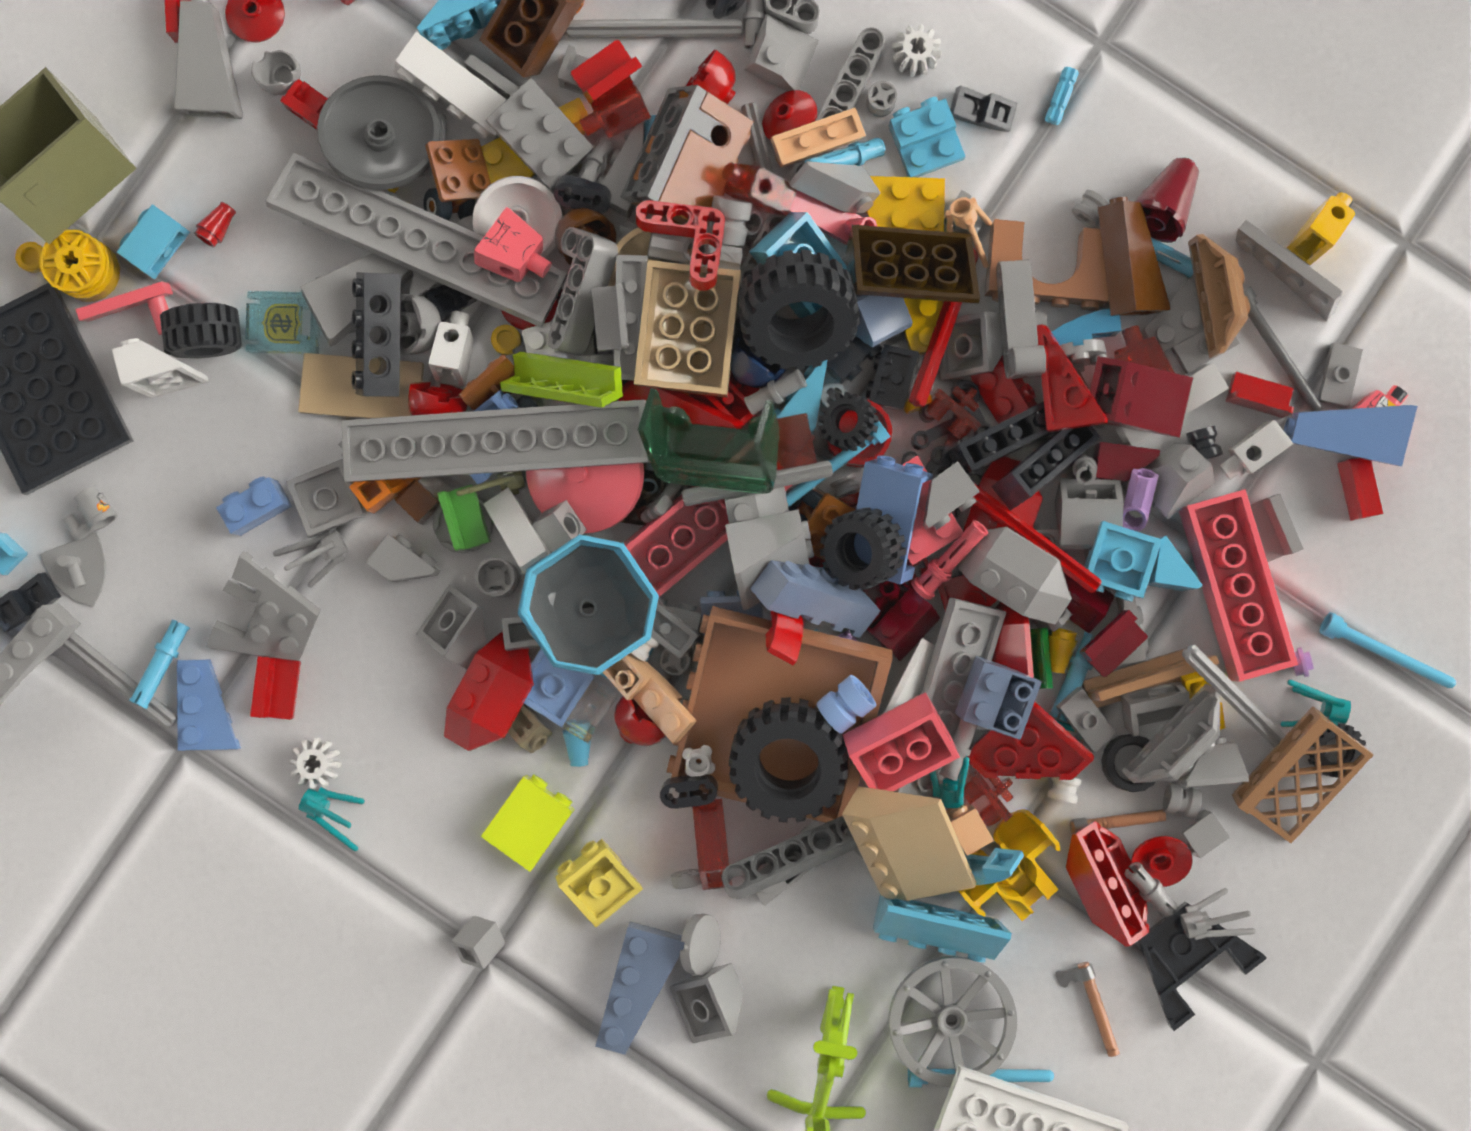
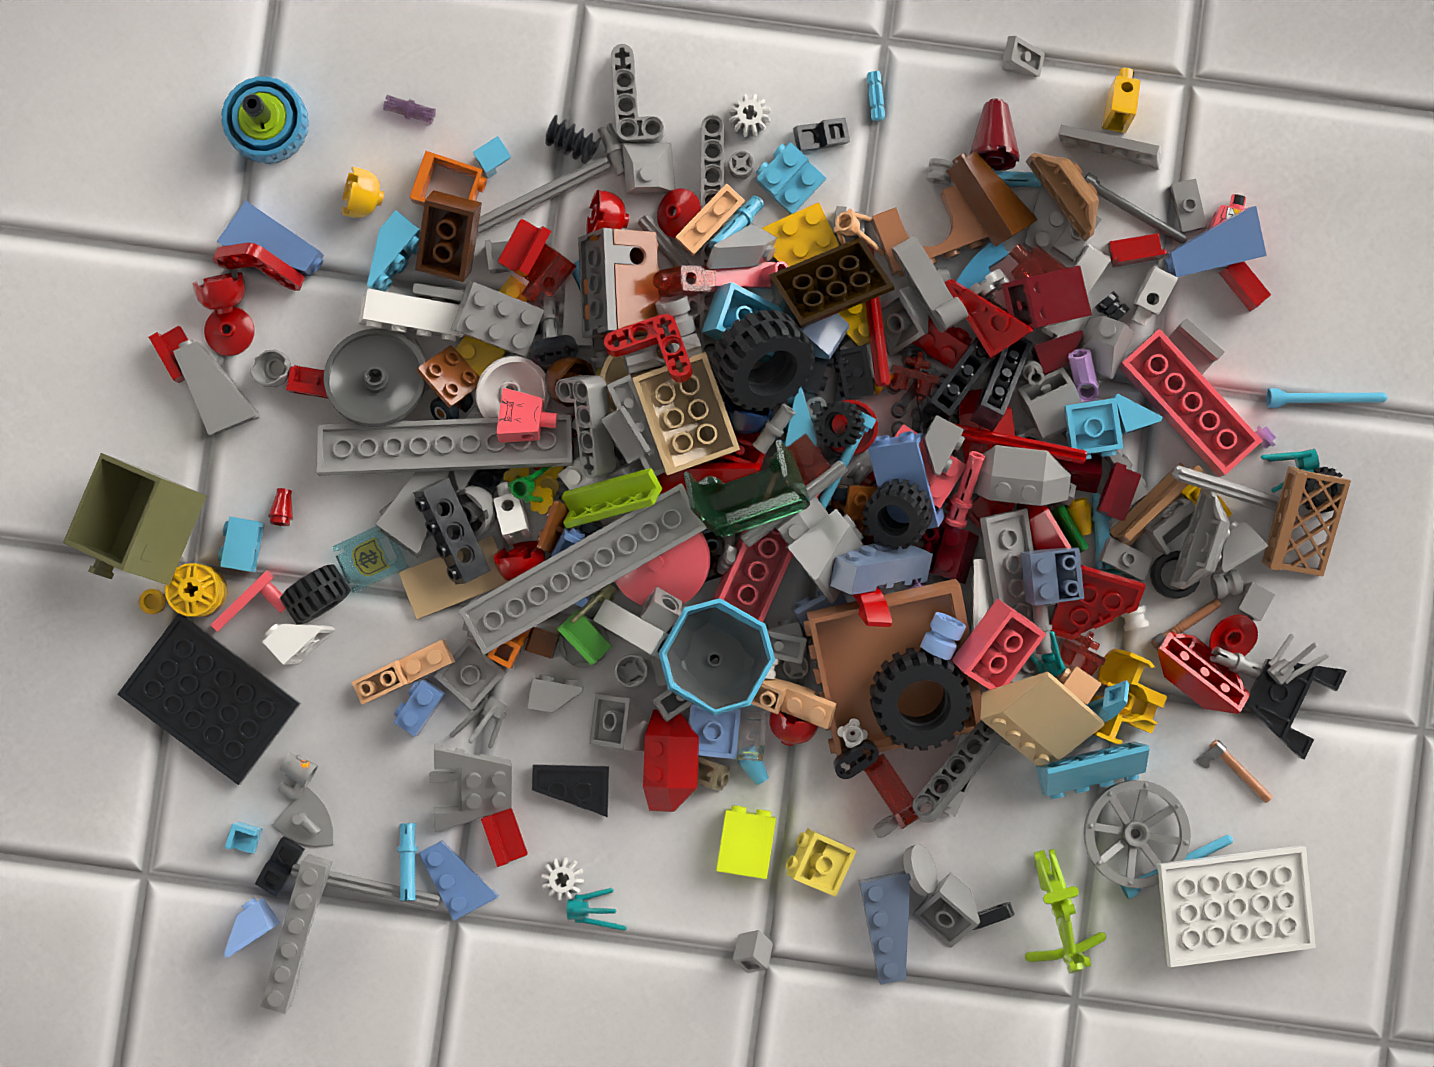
camera: 30 degrees left, 0 degrees up
(255, 460) = (403, 672): none -> light nougat slope
(377, 669) = (575, 784): none -> black wing
(478, 321) = (523, 486): none -> plant
(756, 1031) = (995, 914): none -> black beam
(1239, 129) = (1022, 57): none -> light grey slope

